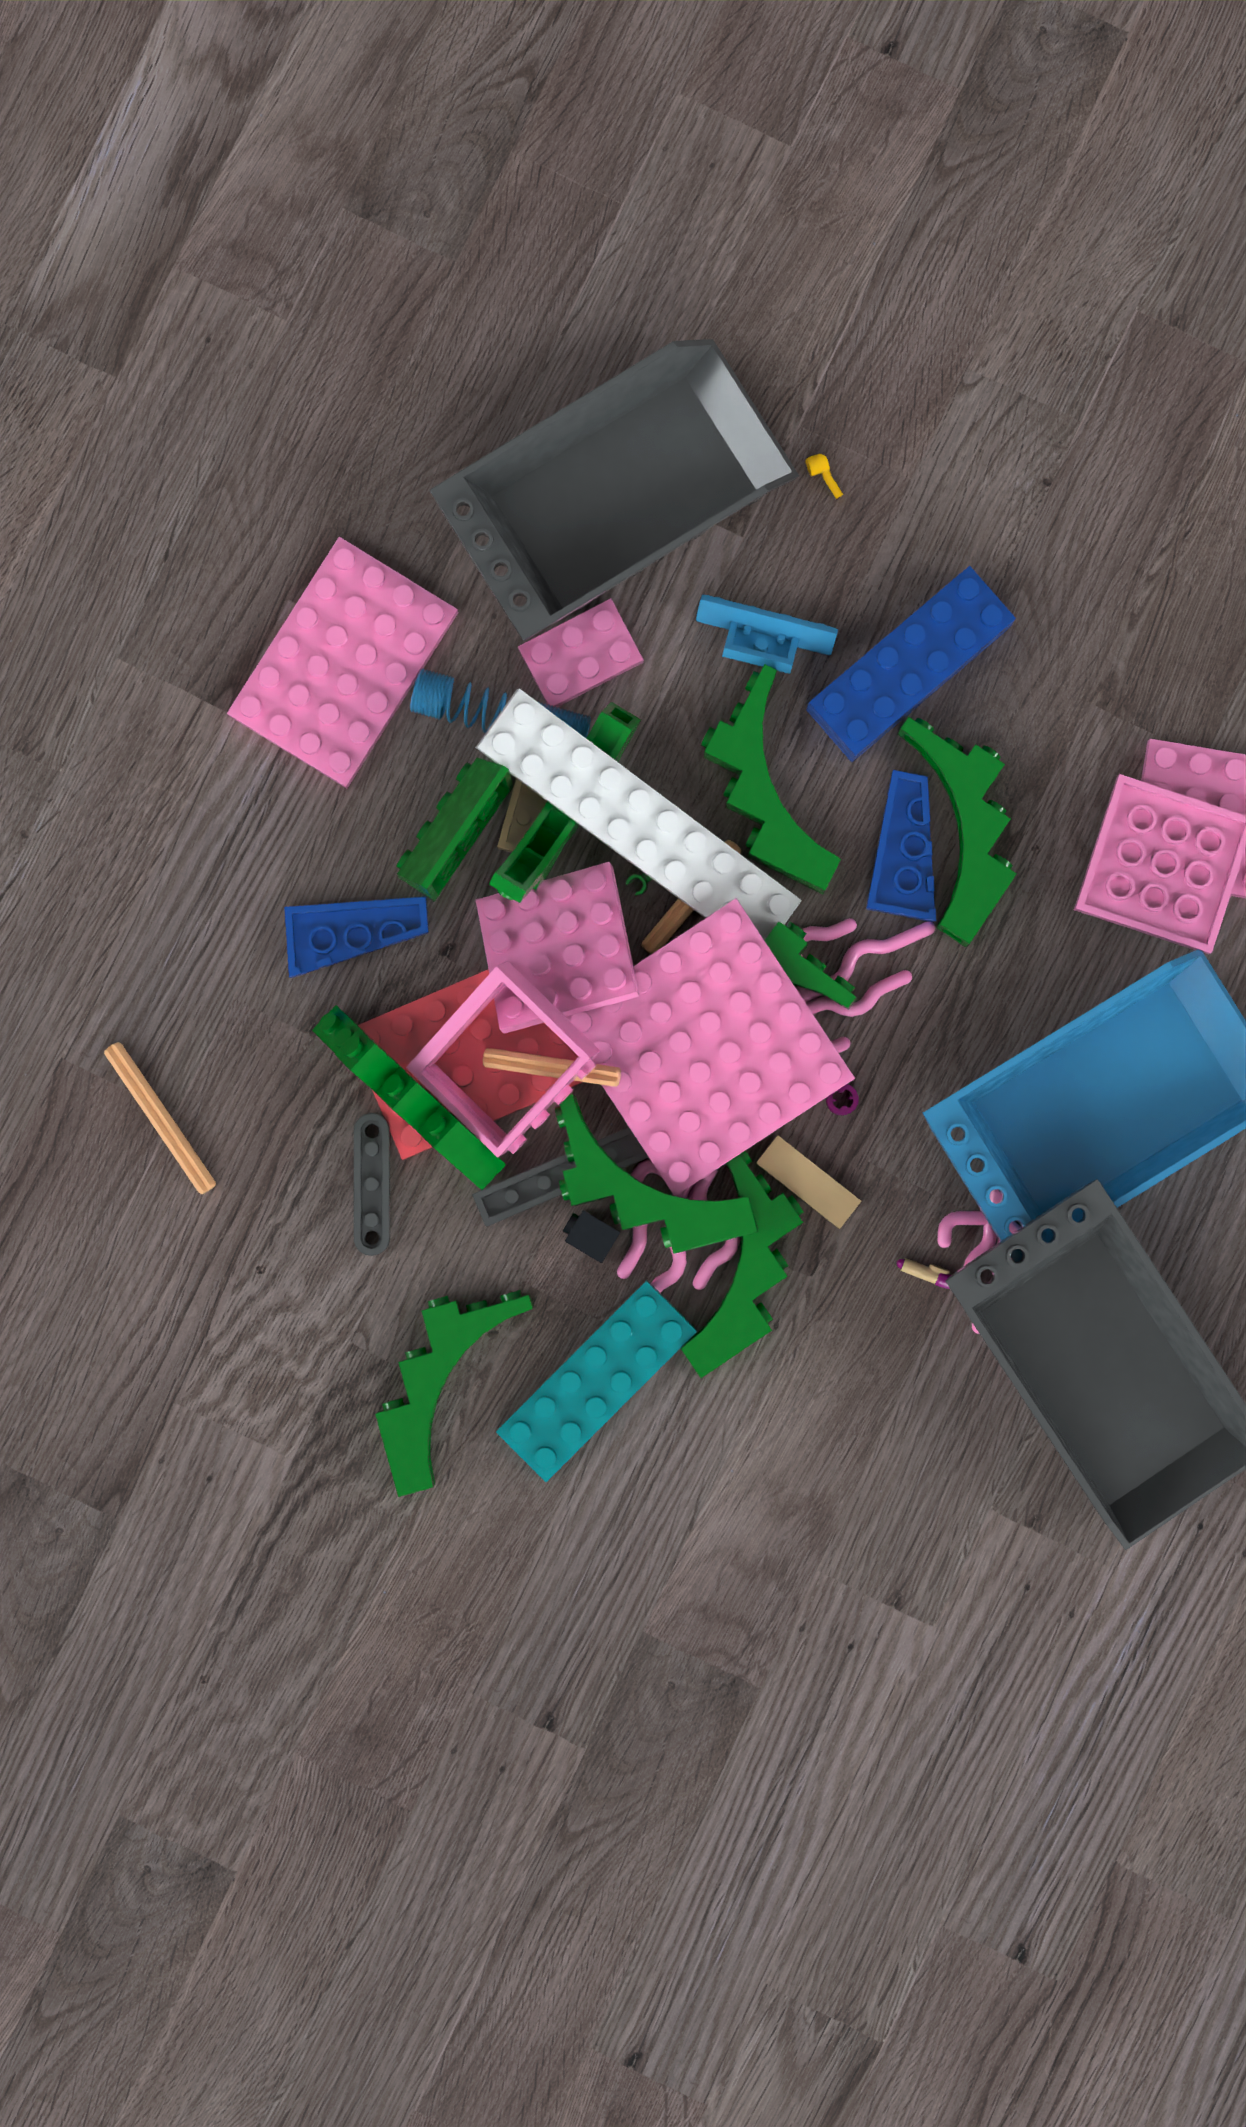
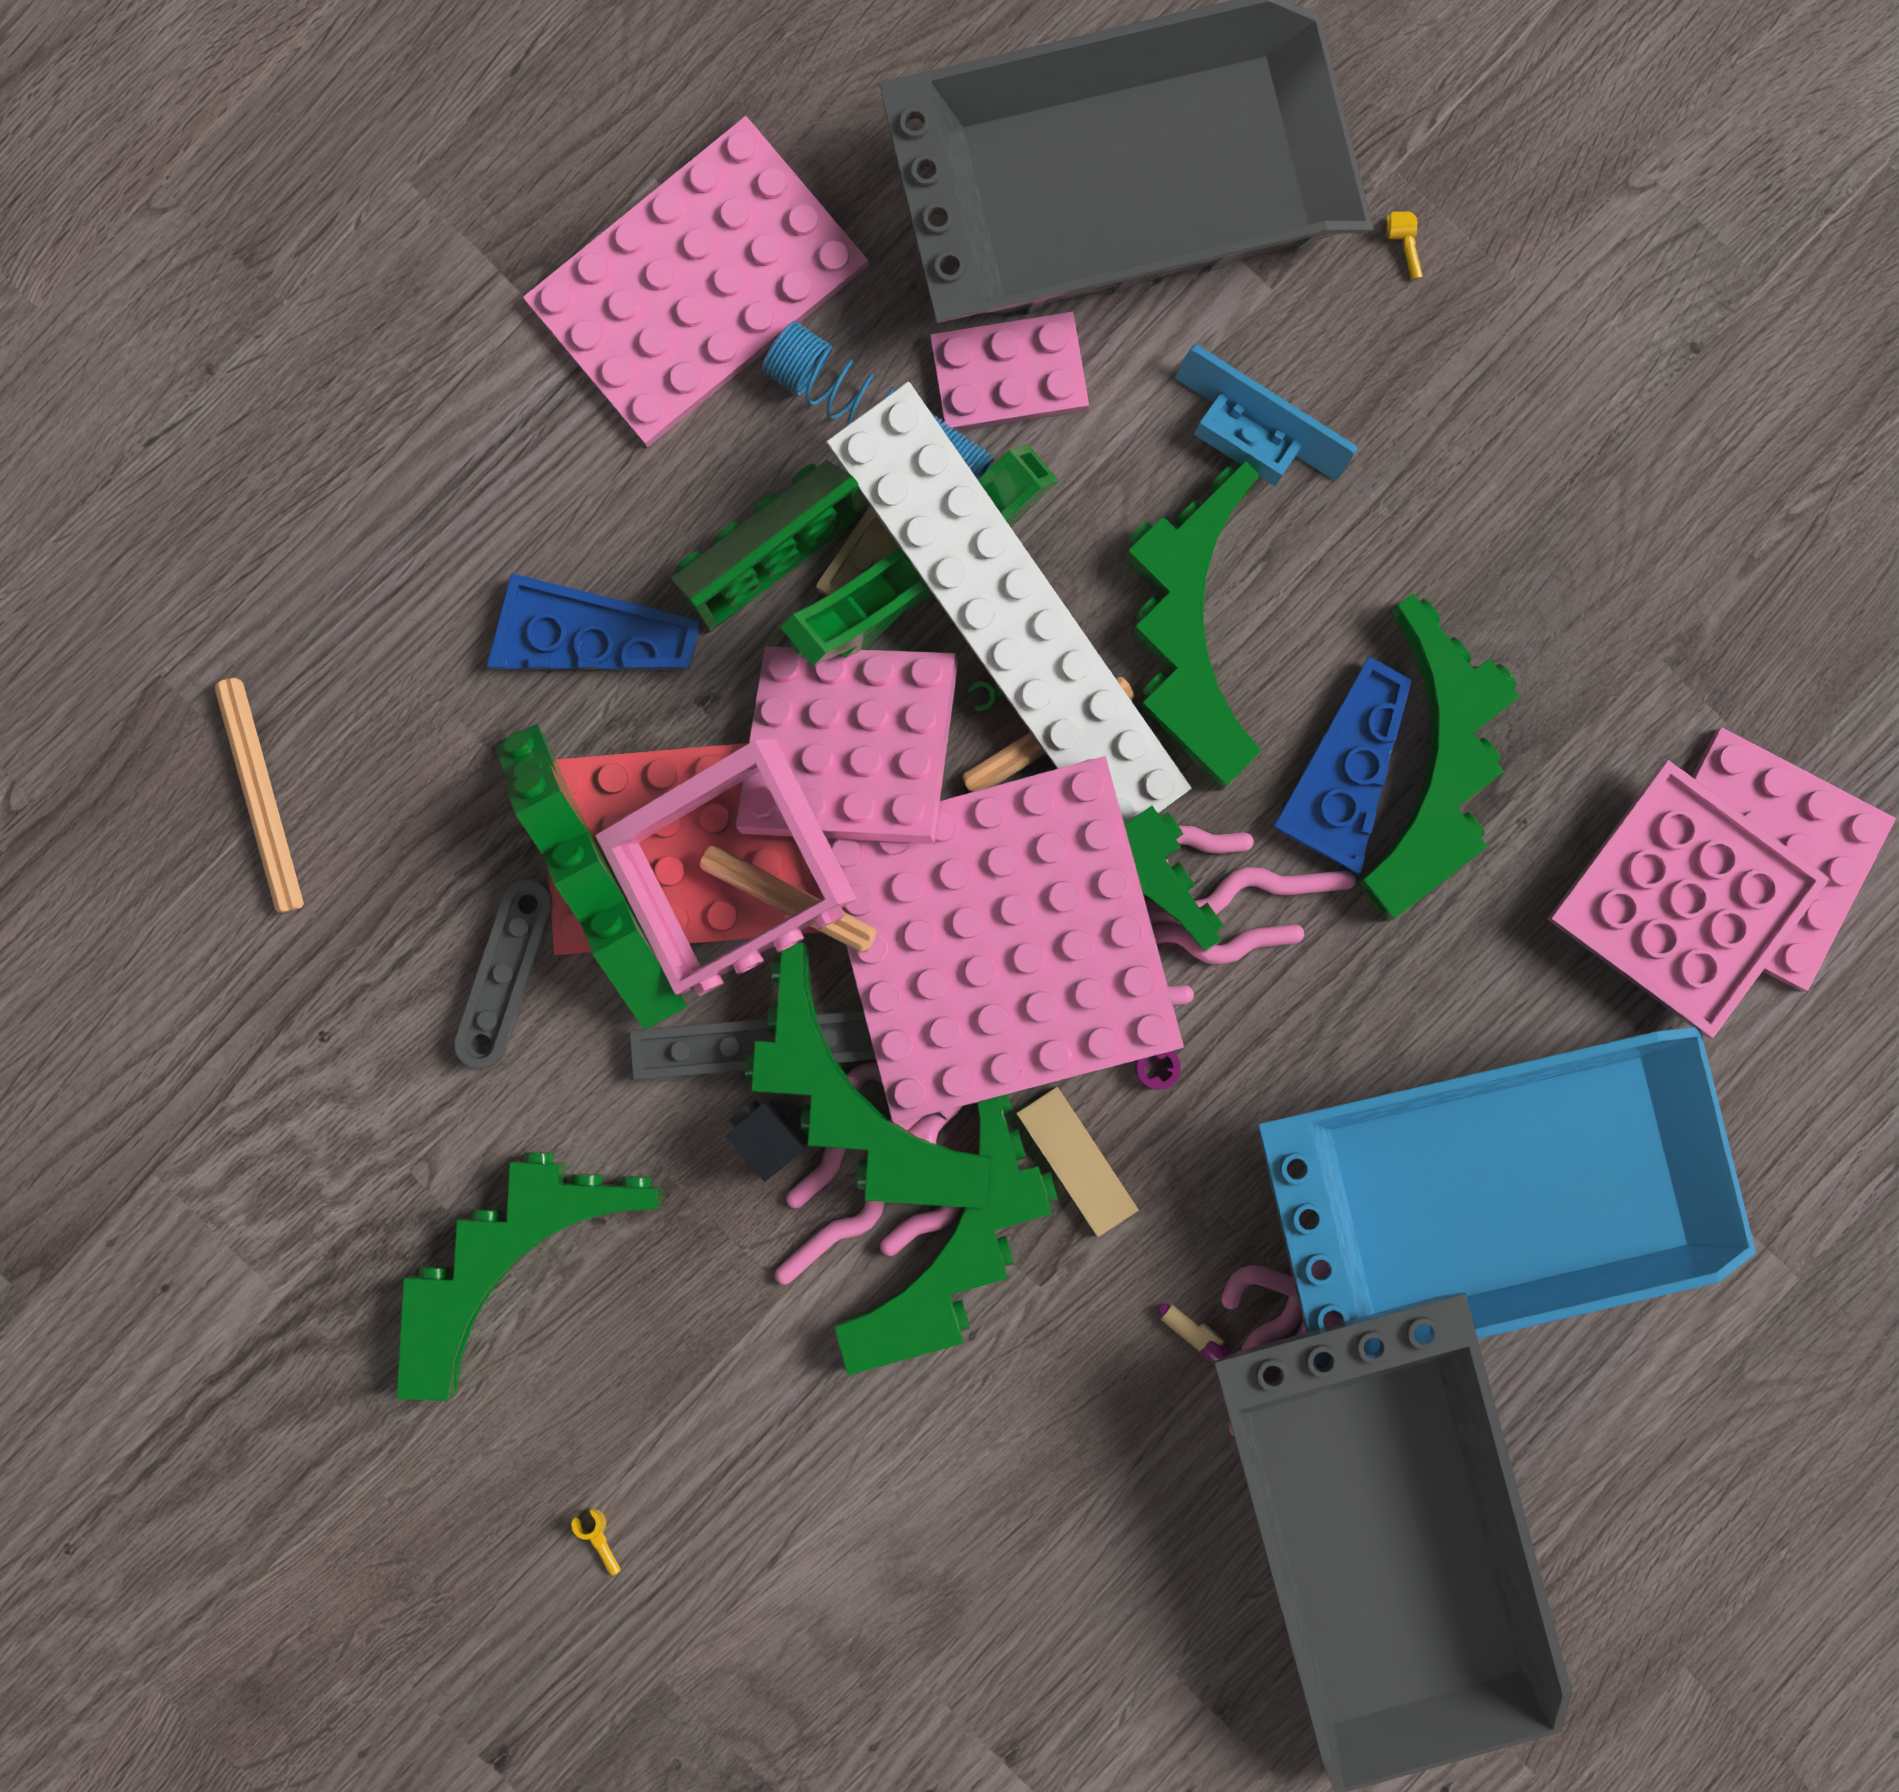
camera: 20 degrees right, 0 degrees up
(567, 1550) = (597, 1539): none -> yellow hand
(596, 1380) = (711, 1331): teal plate -> none
(910, 664) = (1438, 524): blue brick -> none

